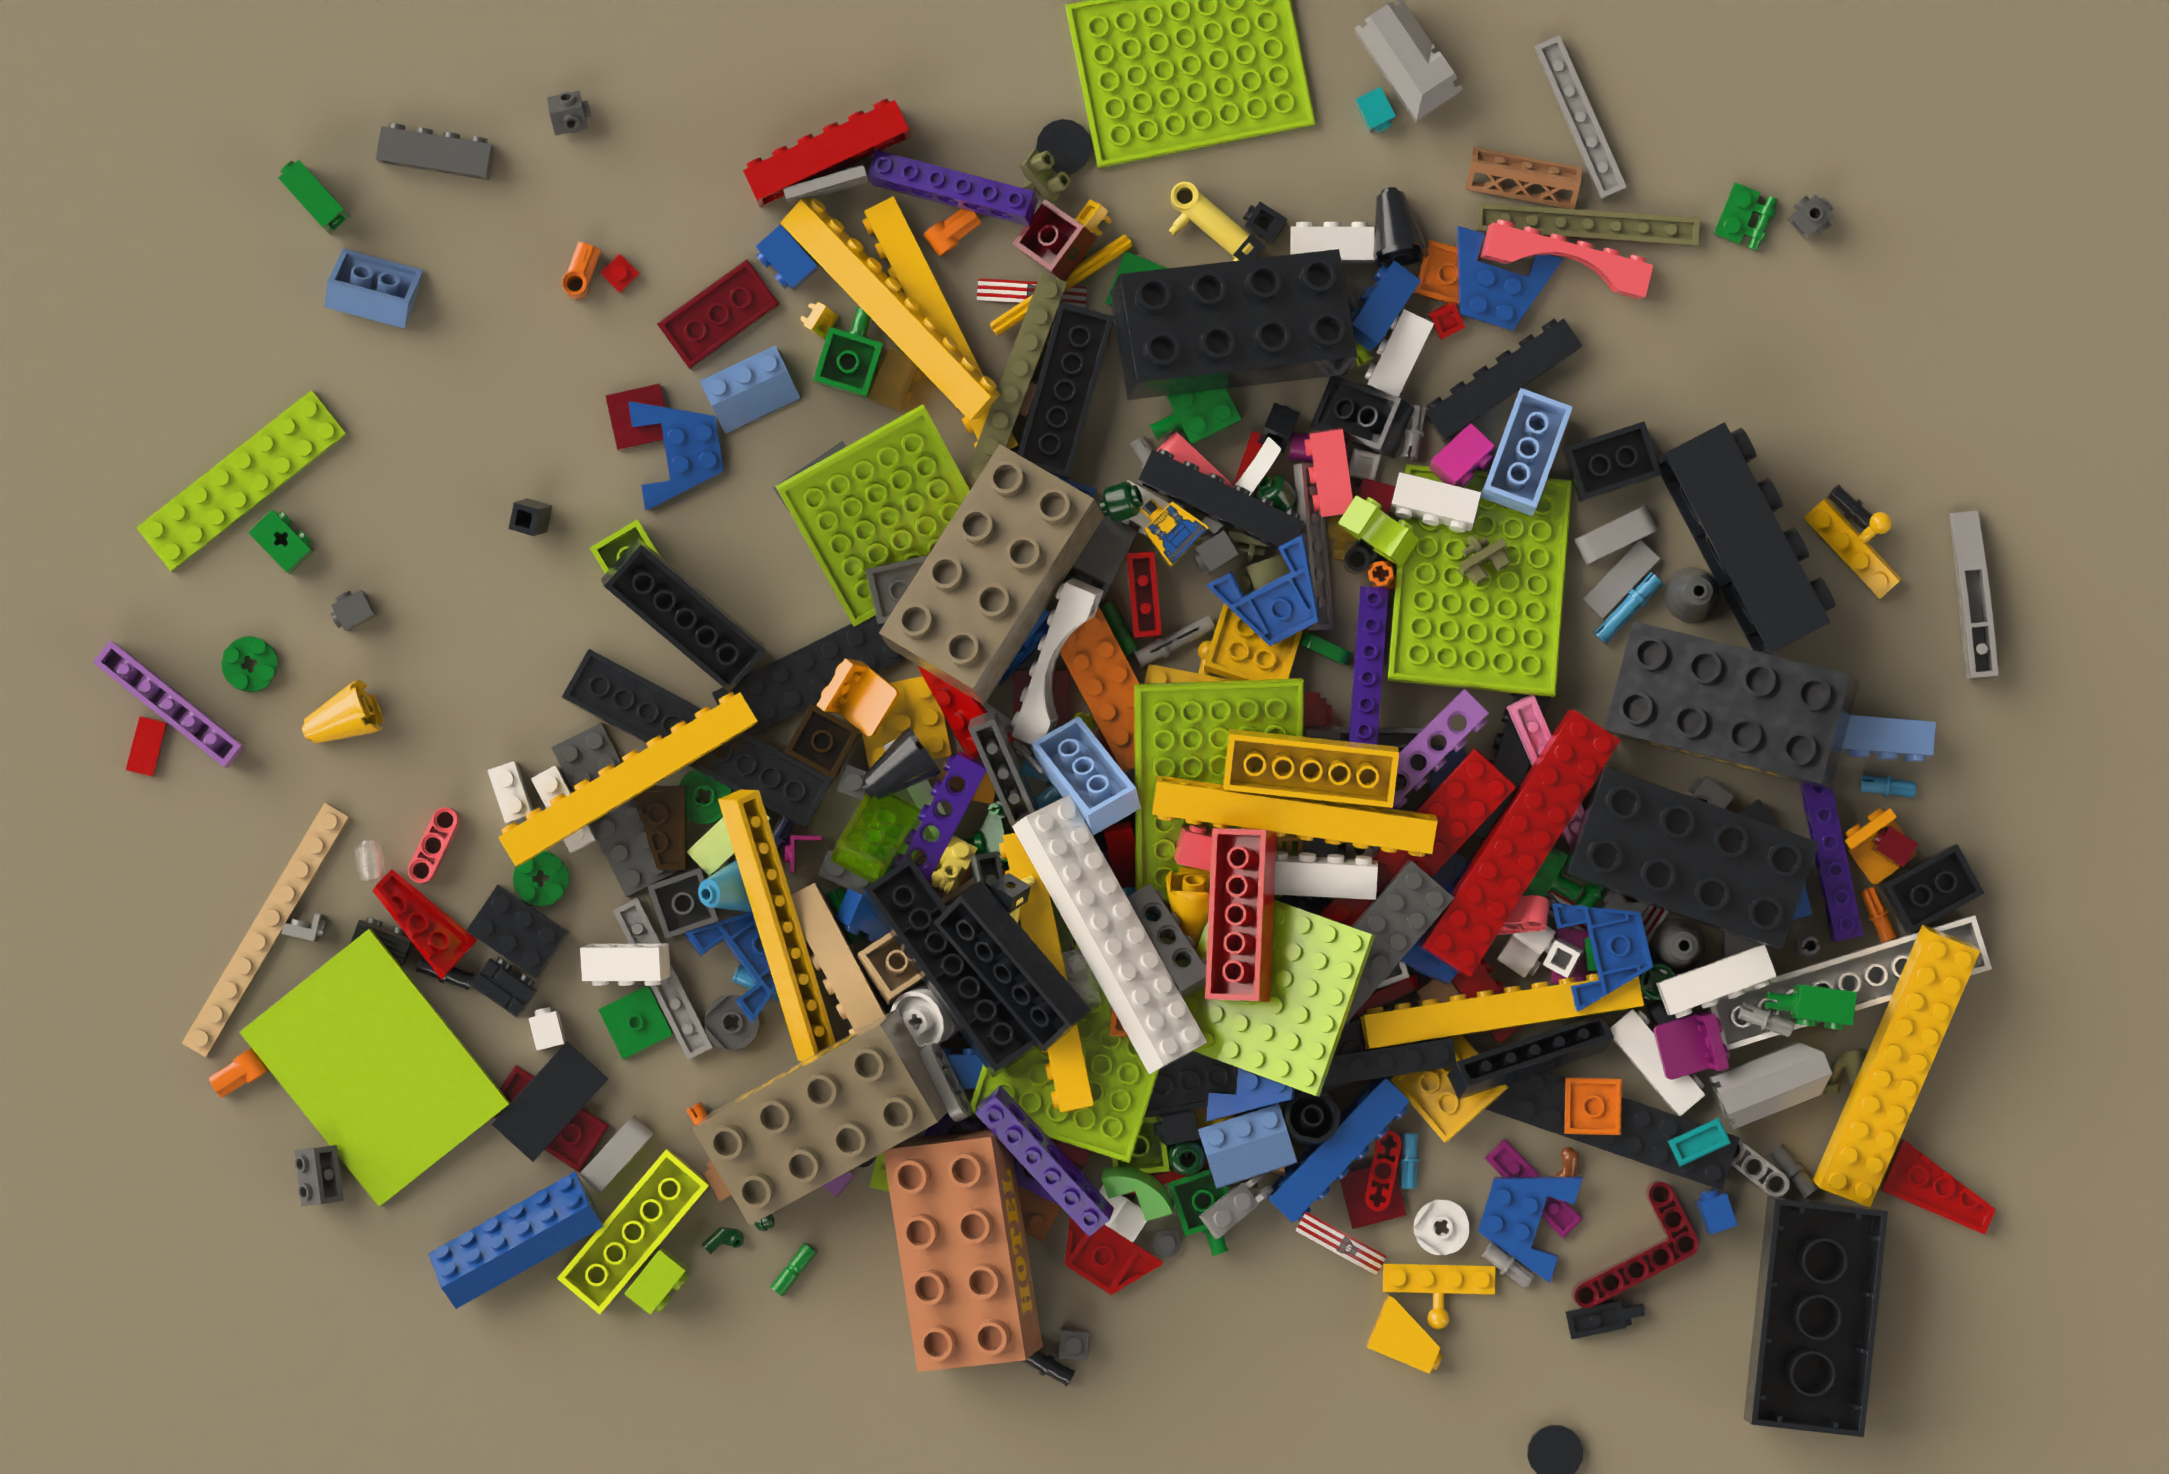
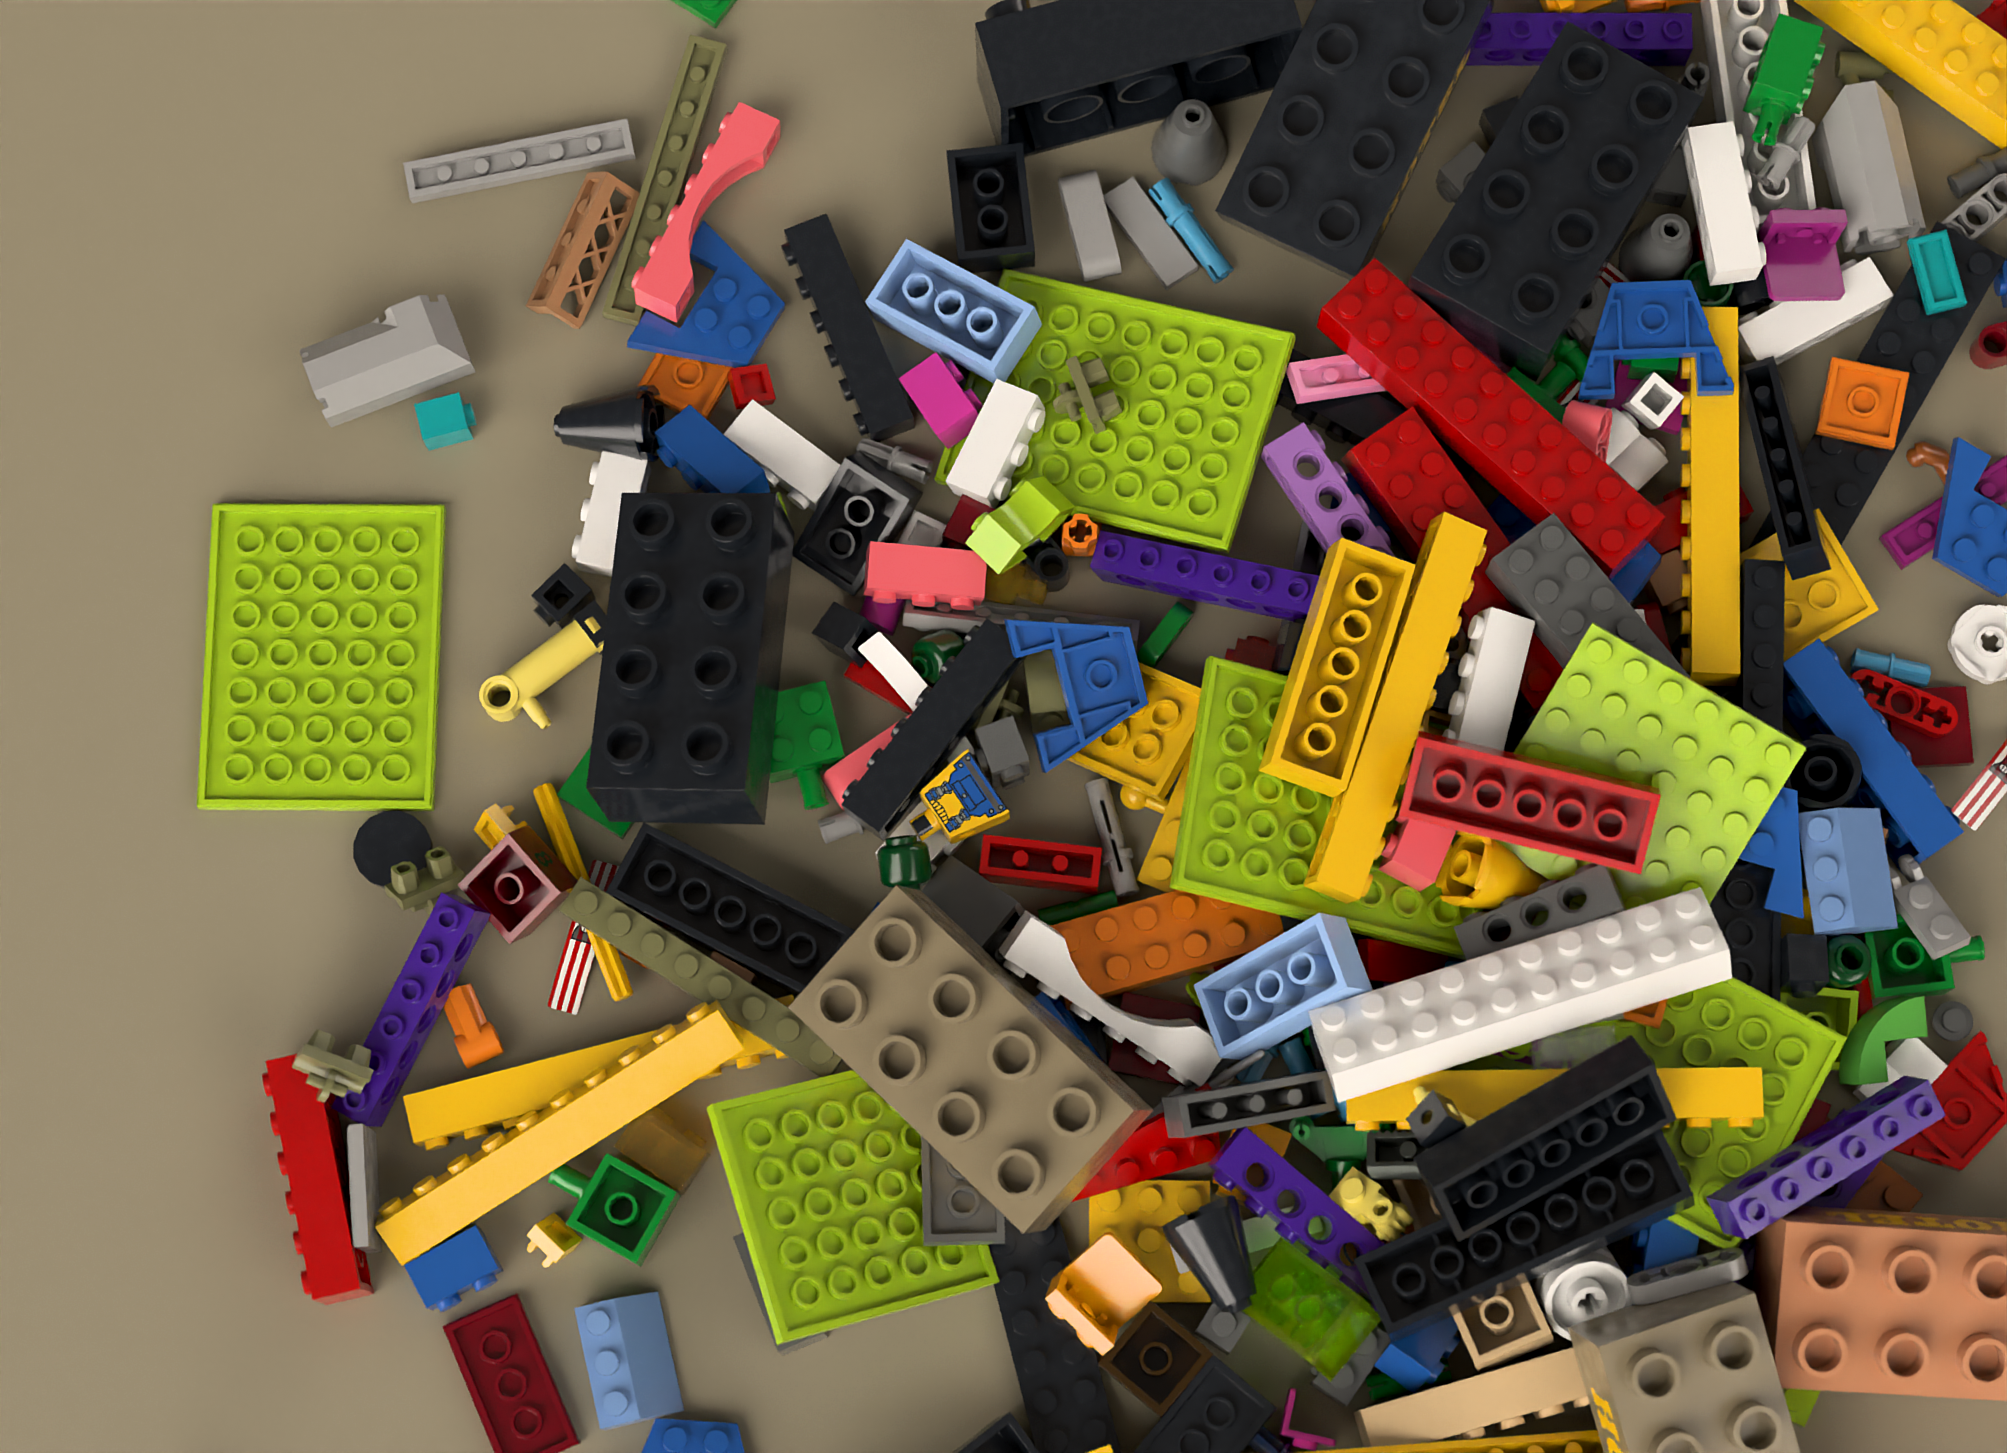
camera: 75 degrees left, 10 degrees down
(894, 146) = (332, 1072): none -> olive hips

